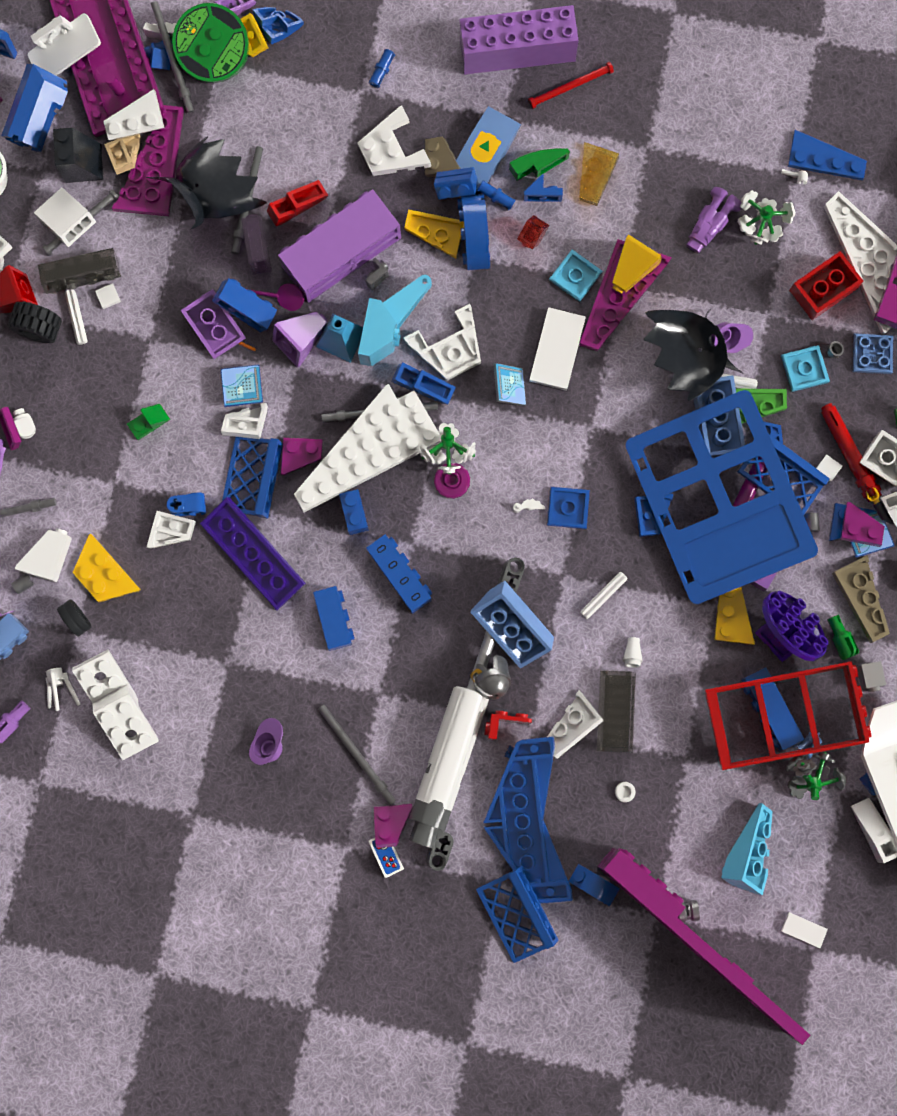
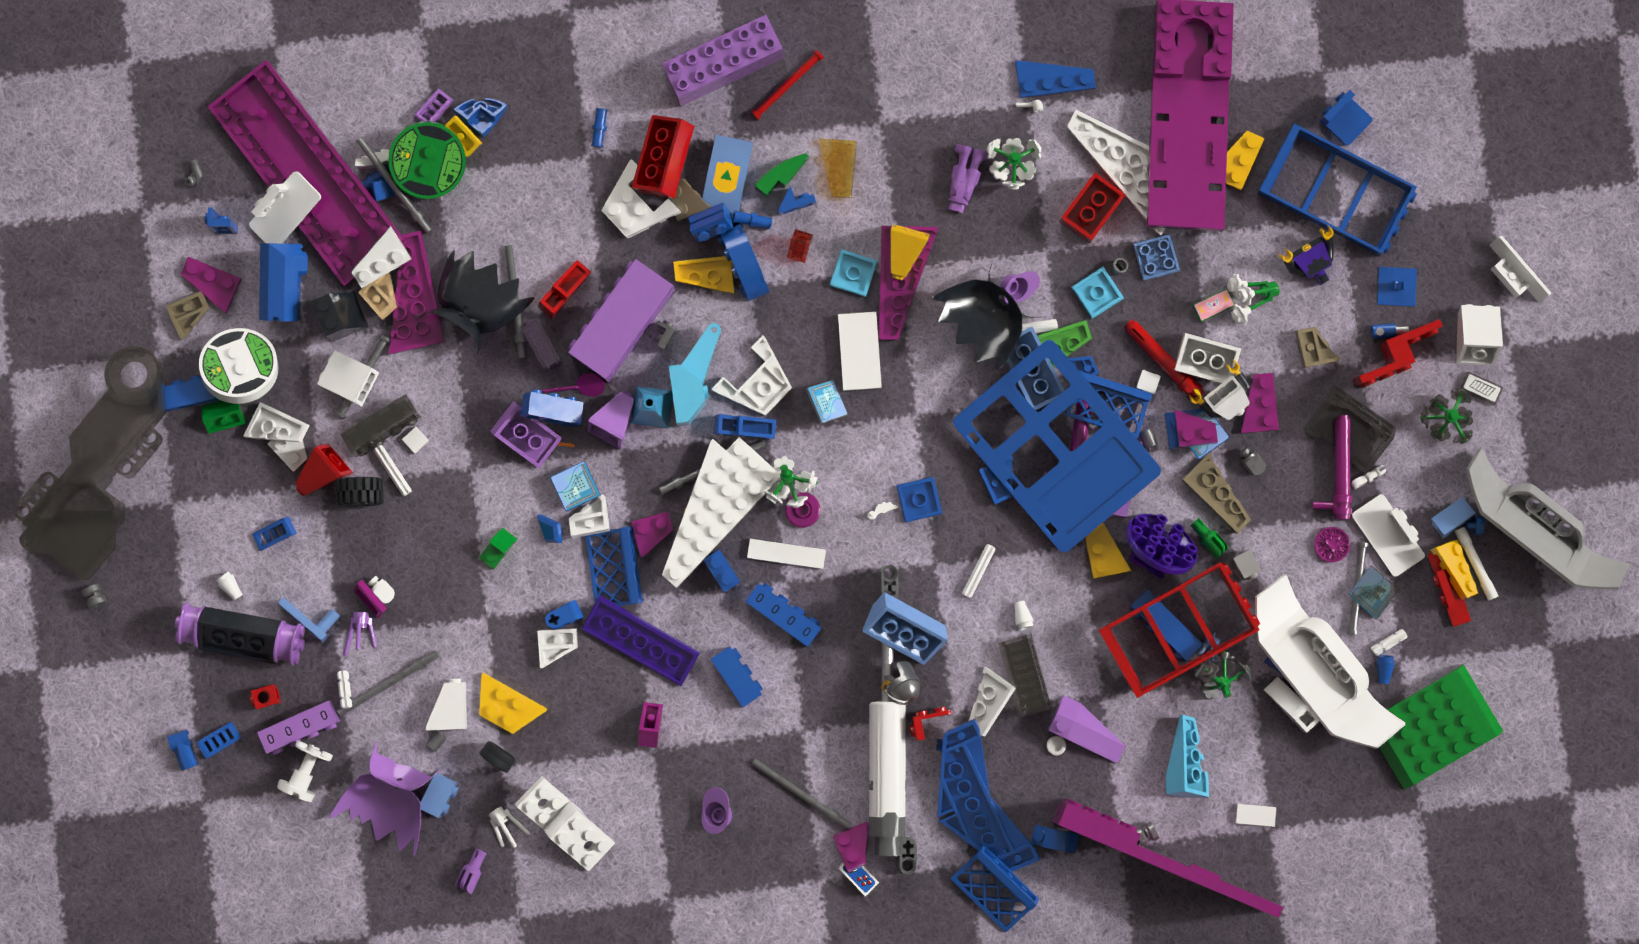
camera: 20 degrees left, 5 degrees up
(204, 419) = (551, 529): none -> blue piece
(232, 637) = (650, 725): none -> magenta slope
(422, 517) = (786, 553): none -> white tile
(431, 109) = (662, 156): none -> red brick
(654, 780) = (1084, 729): none -> medium lavender wedge

